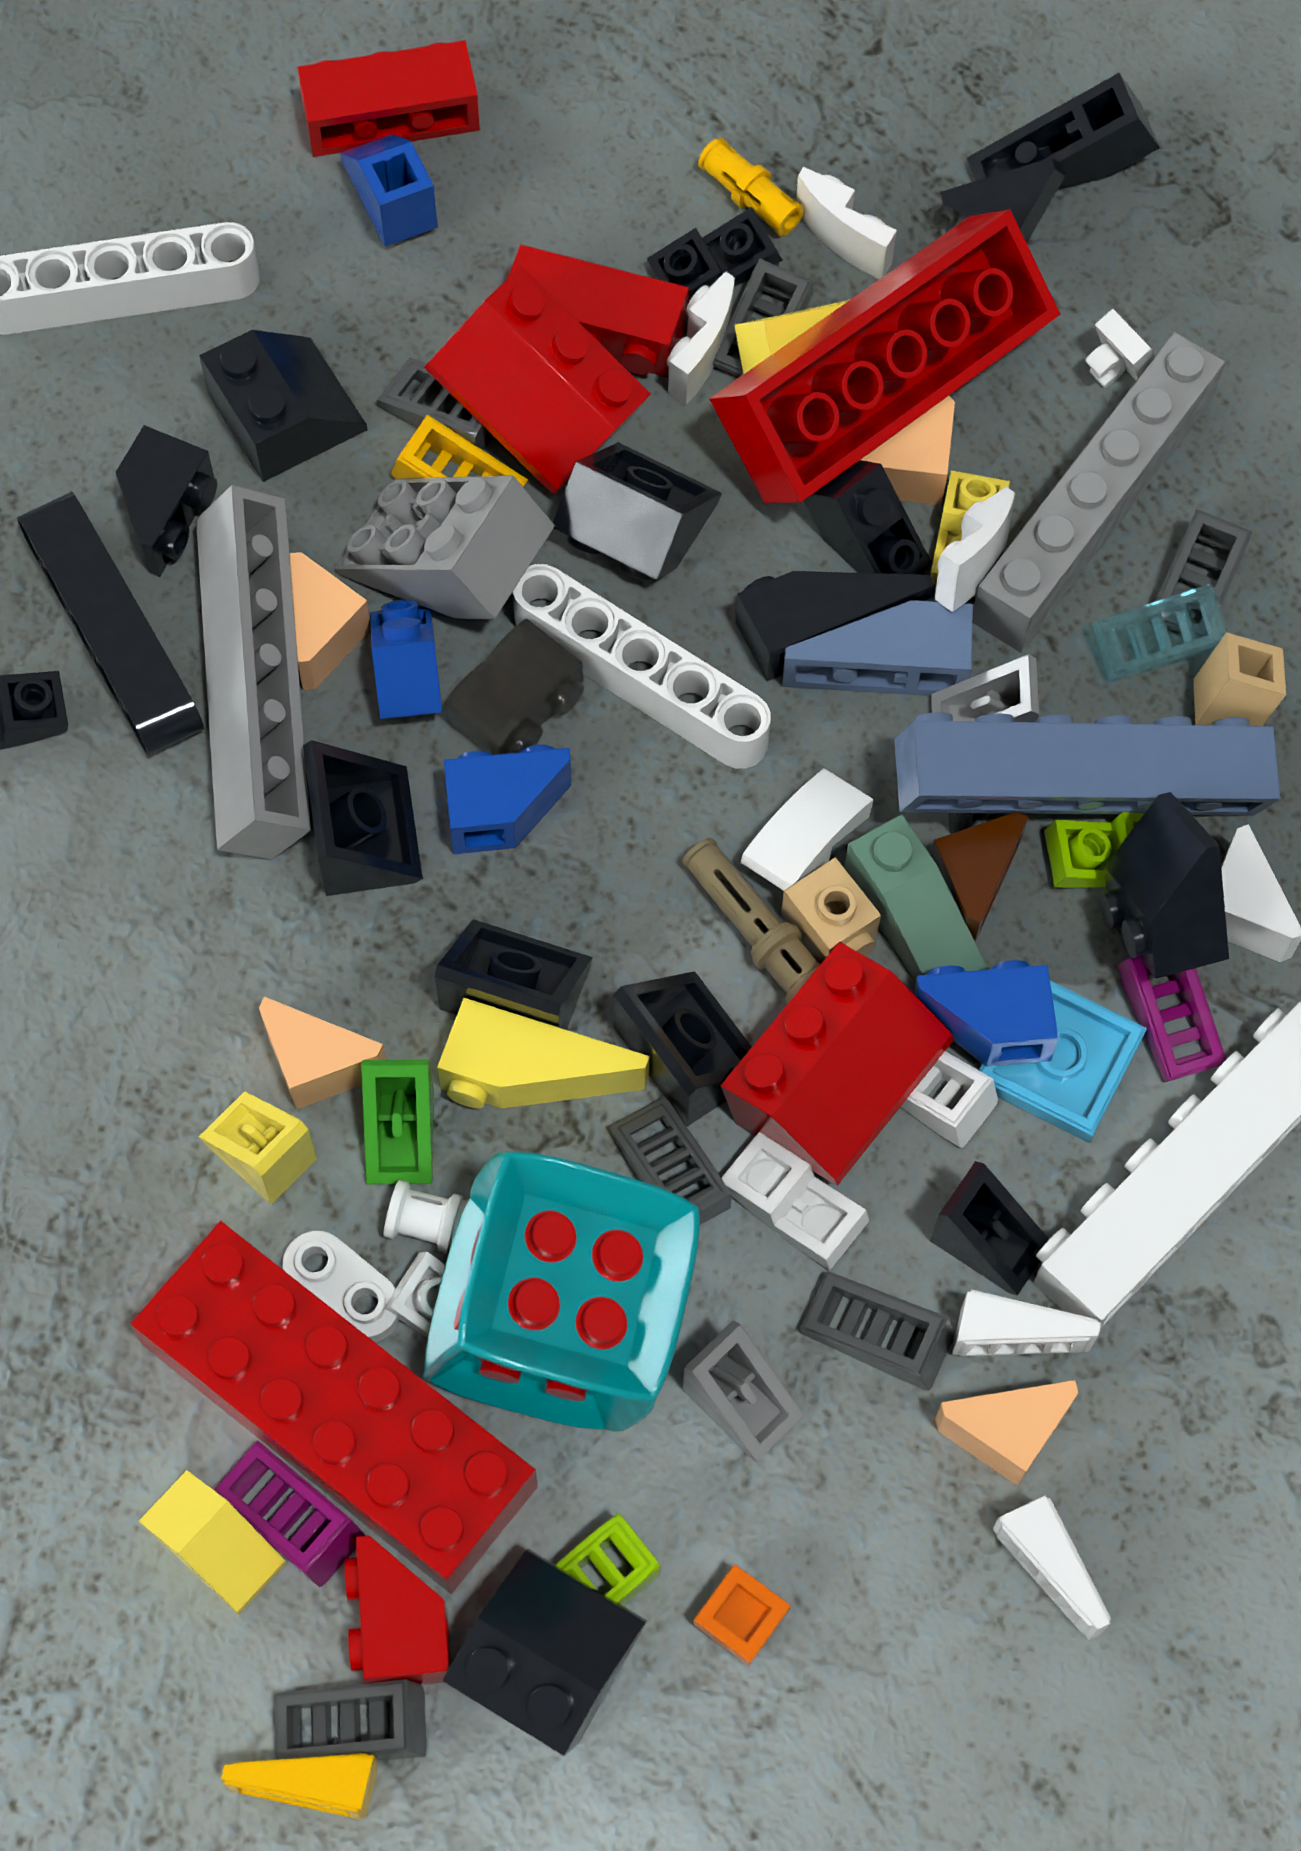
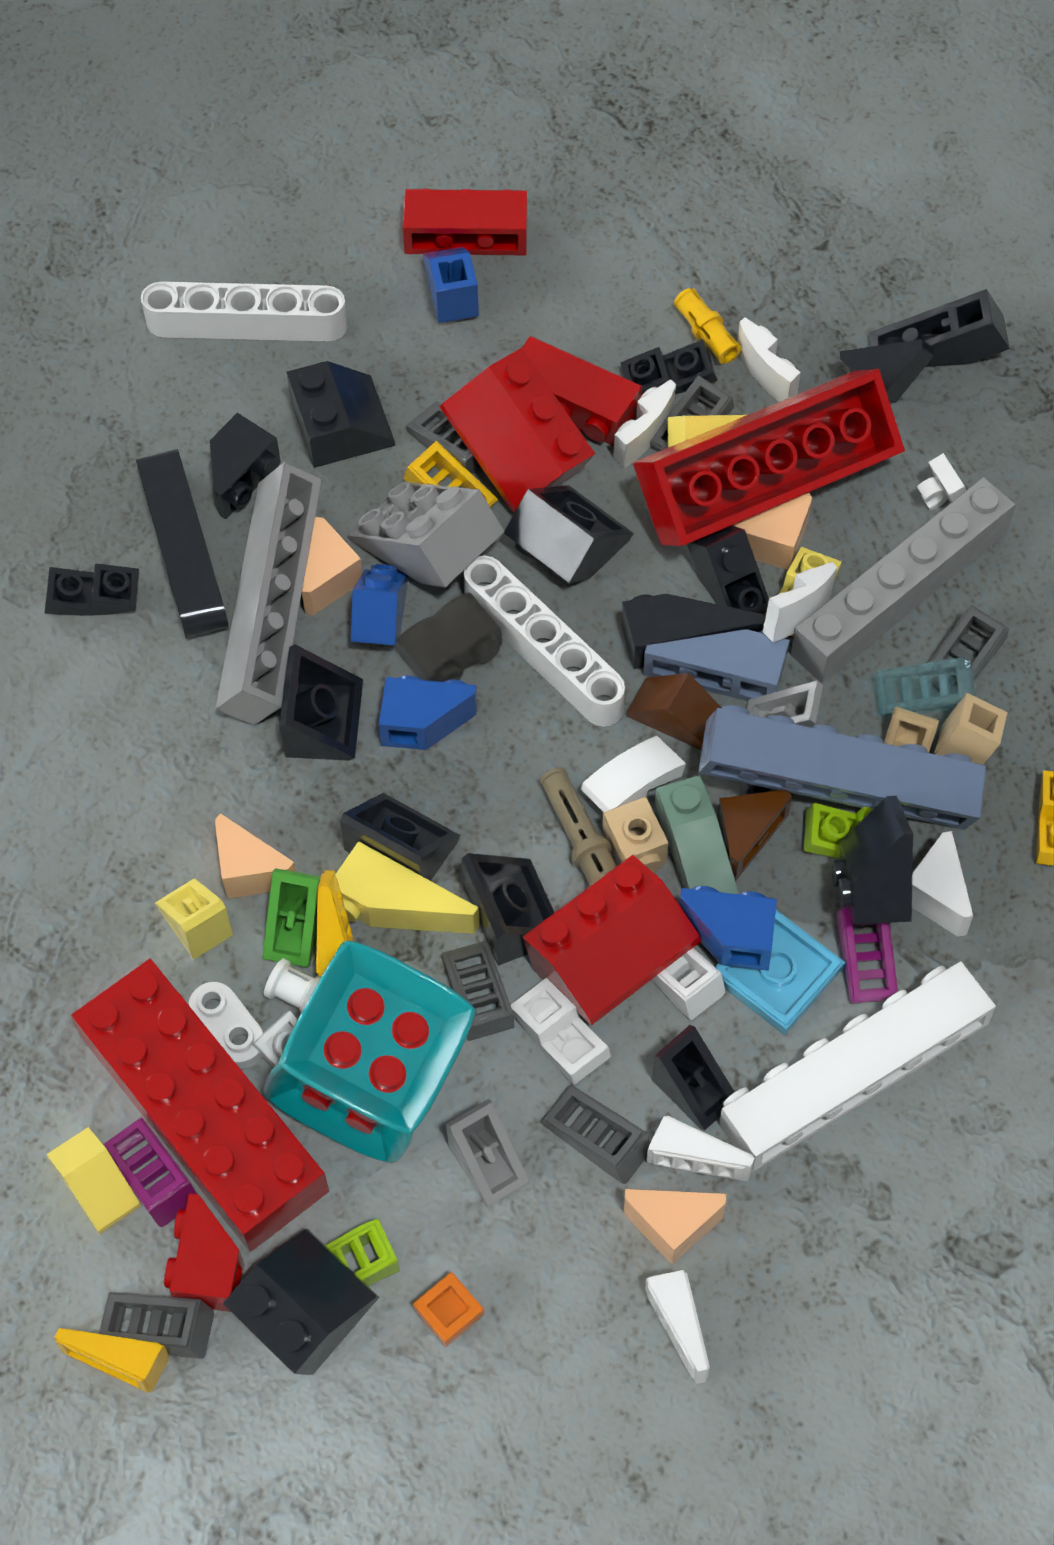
camera: 15 degrees right, 5 degrees down
(461, 1129) = (332, 920): none -> yellow slope
(841, 725) = (674, 707): none -> reddish brown slope
(1157, 695) = (911, 728): none -> tan slope

